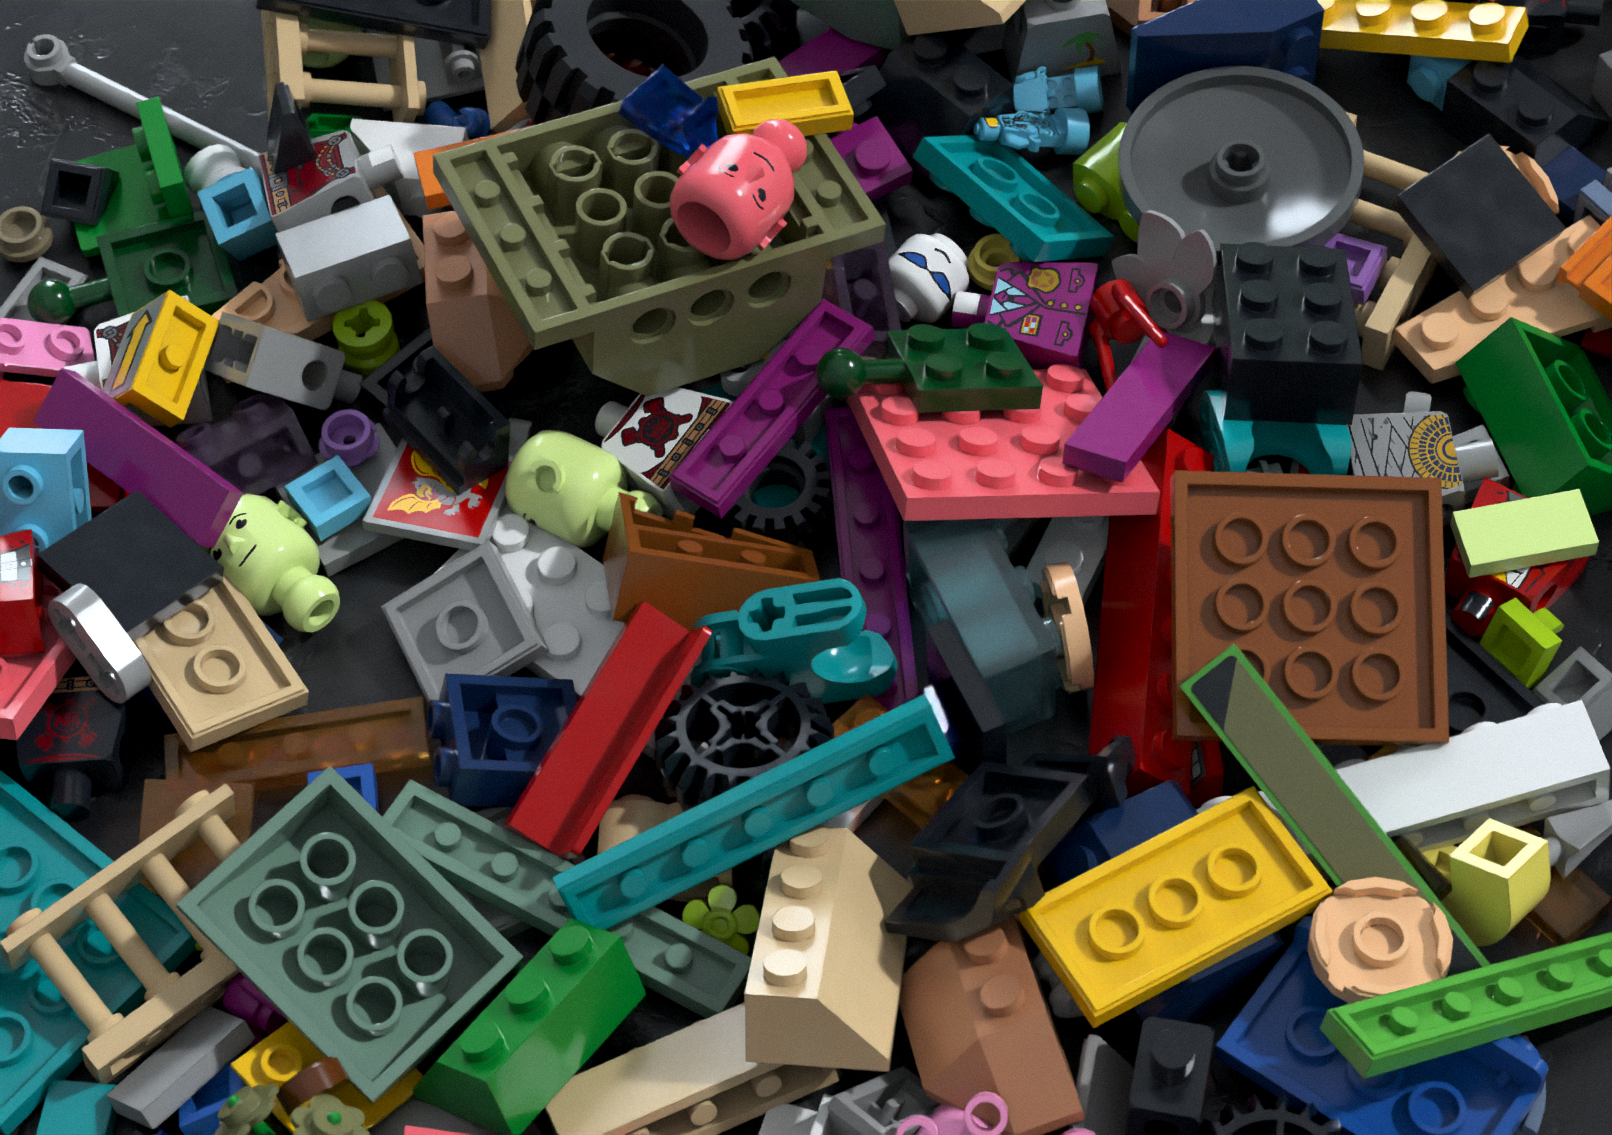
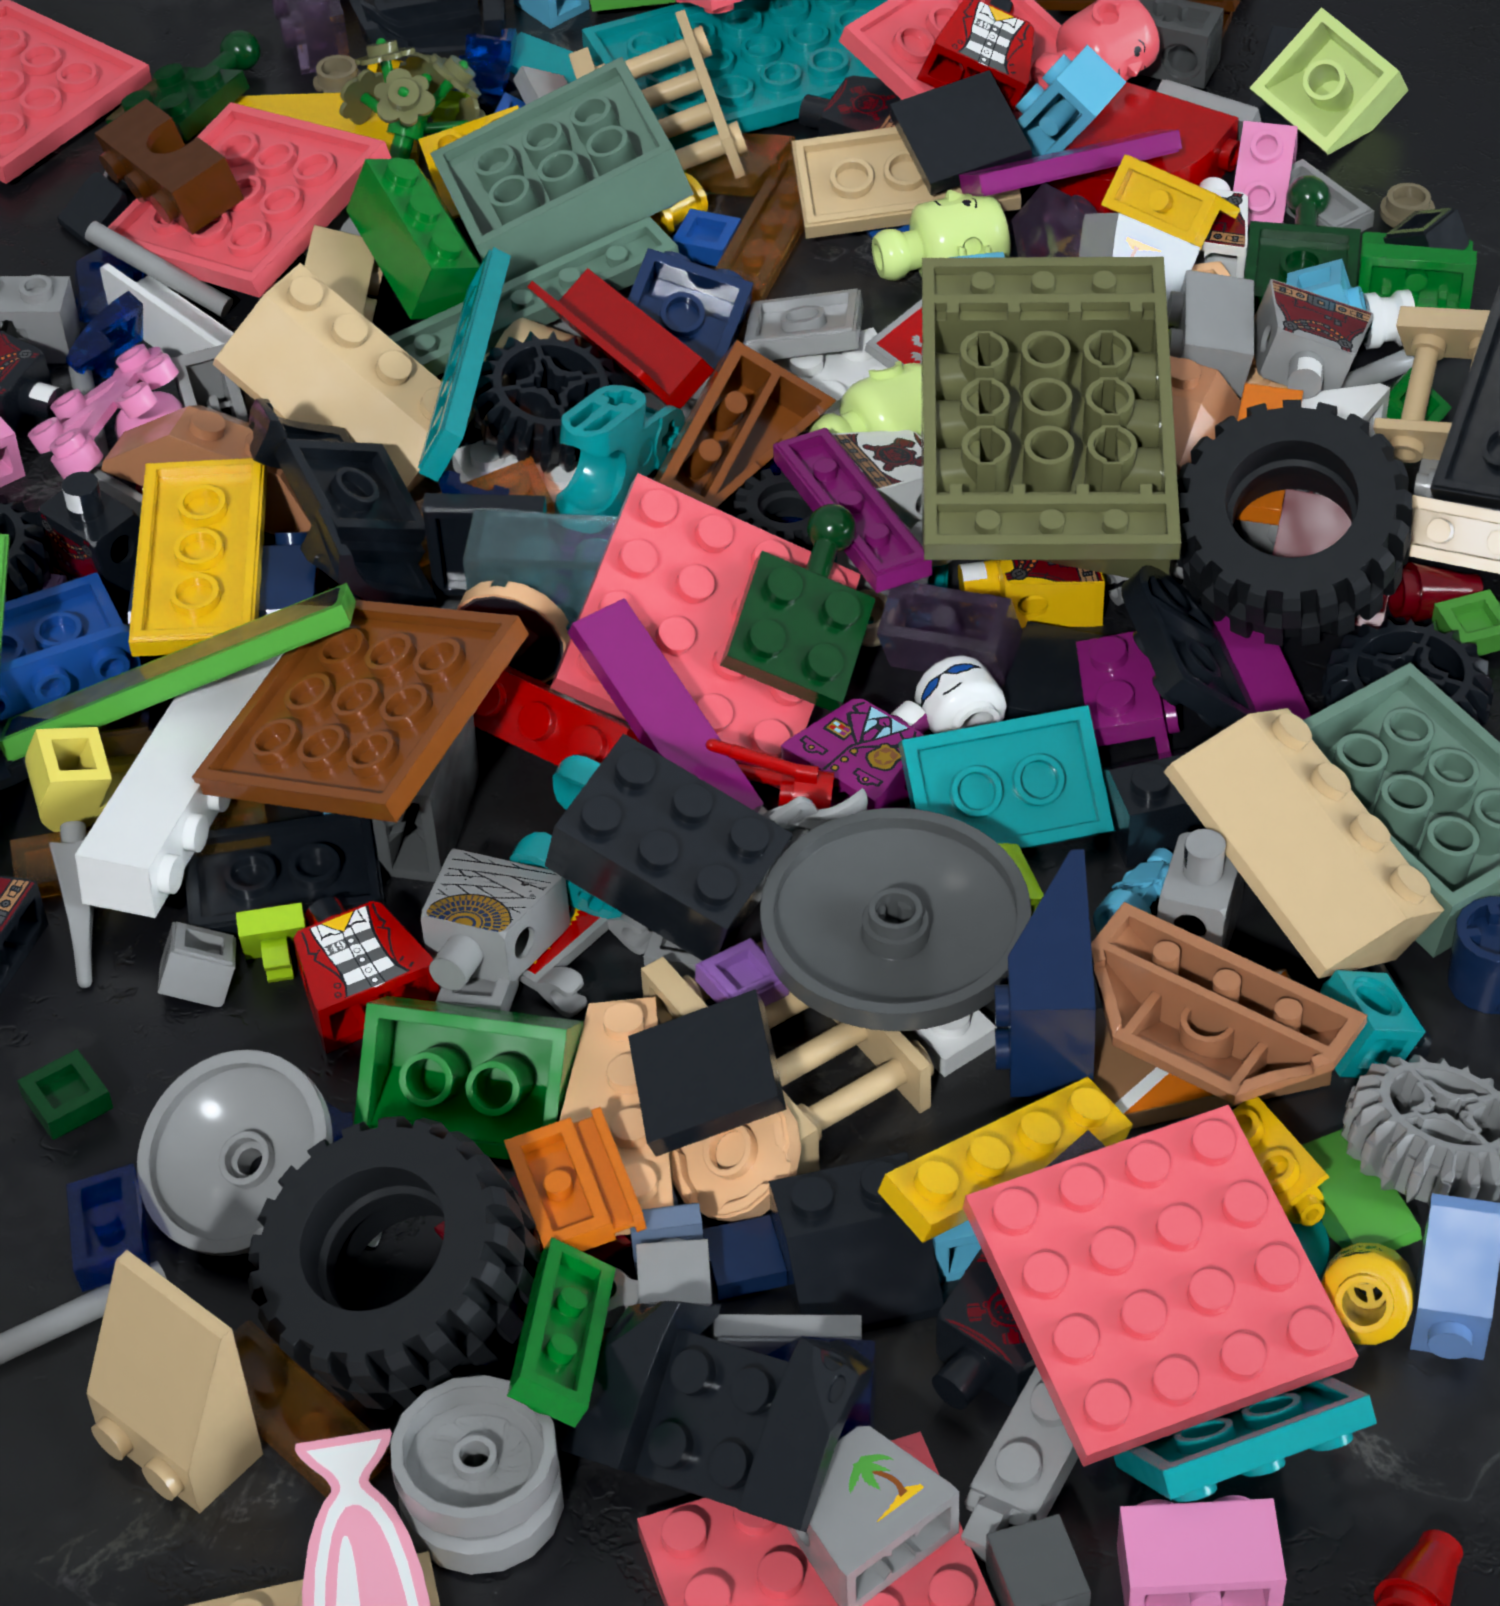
camera: 115 degrees right, 10 degrees down
(99, 643) = (872, 107): light grey beam -> none
(287, 133) = (1366, 308): black slope -> none
(319, 1078) = (454, 114): reddish brown tile -> none
(672, 113) = (1121, 429): clear blue slope -> none
(738, 190) = (987, 412): coral piece -> none
(809, 102) = (1098, 514): yellow tile -> none
(1064, 131) = (1095, 830): medium azure piece -> none
(1377, 939) = (63, 649): light nougat tile -> none
(1524, 533) = (349, 945): yellowish green tile -> none

